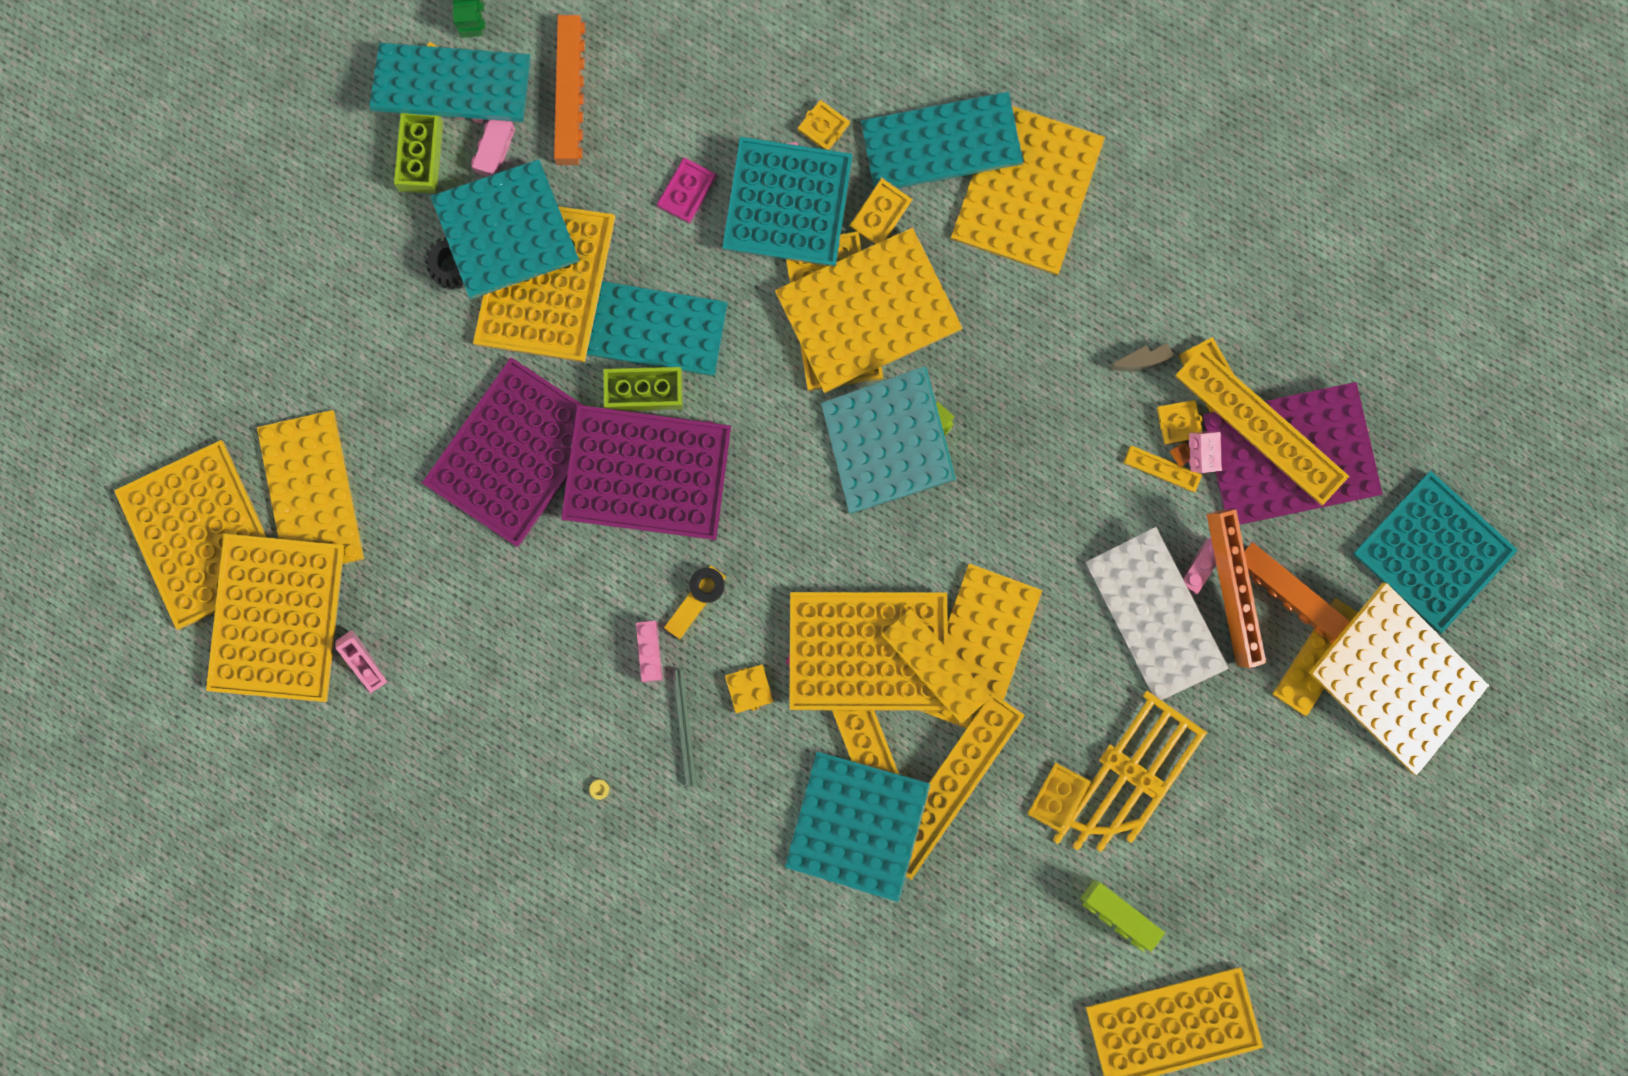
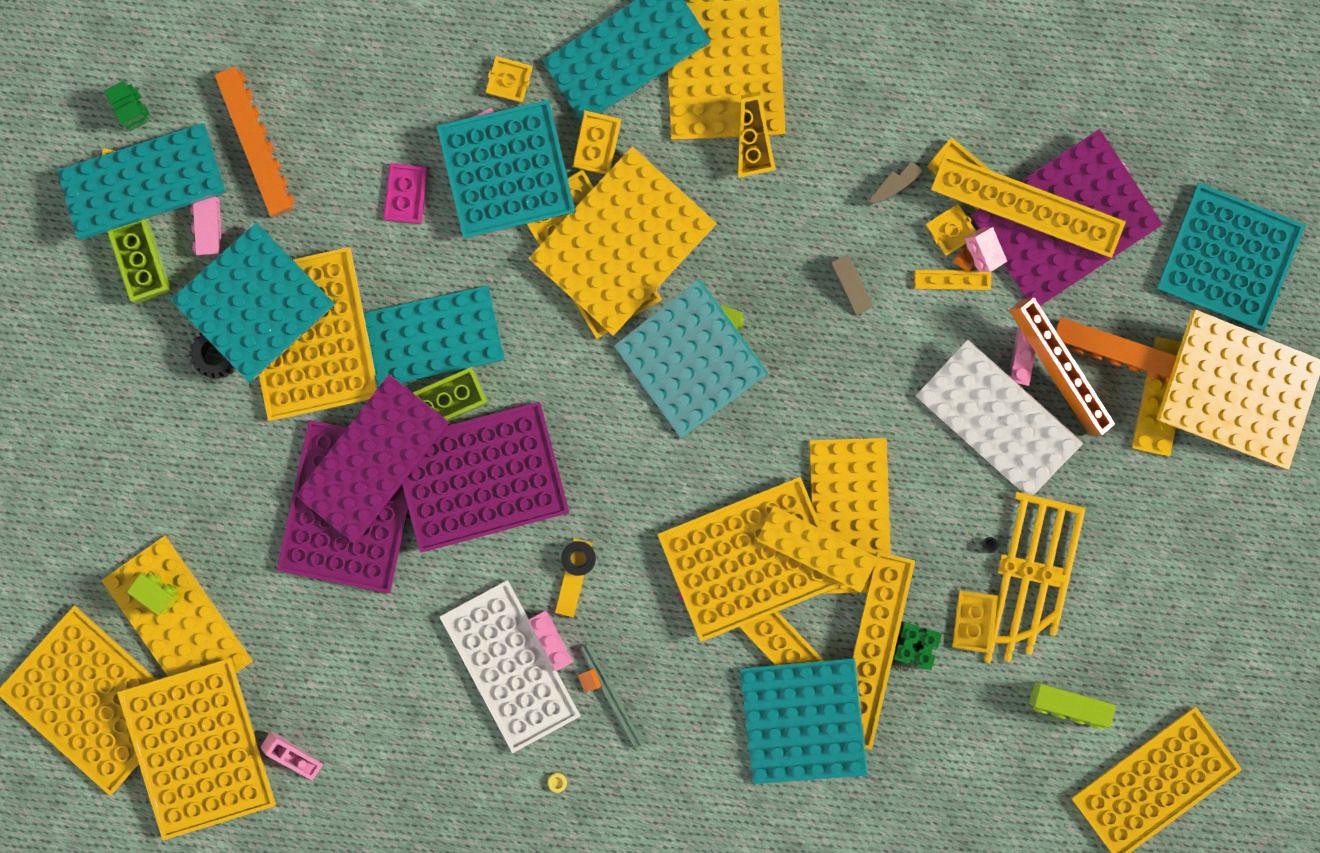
camera: 20 degrees left, 5 degrees up
(298, 456) = (154, 593): none -> lime brick
(553, 414) = (372, 458): none -> magenta plate
(600, 661) = (510, 666): none -> white plate
(669, 704) = (589, 680): none -> orange tile
(749, 689) = (655, 636): yellow plate -> none
(1007, 797) = (923, 656): none -> green brick
(1028, 264) = (754, 143): none -> yellow wedge
(1066, 434) = (851, 284): none -> dark tan slope
(1105, 732) = (994, 545): none -> black hinge

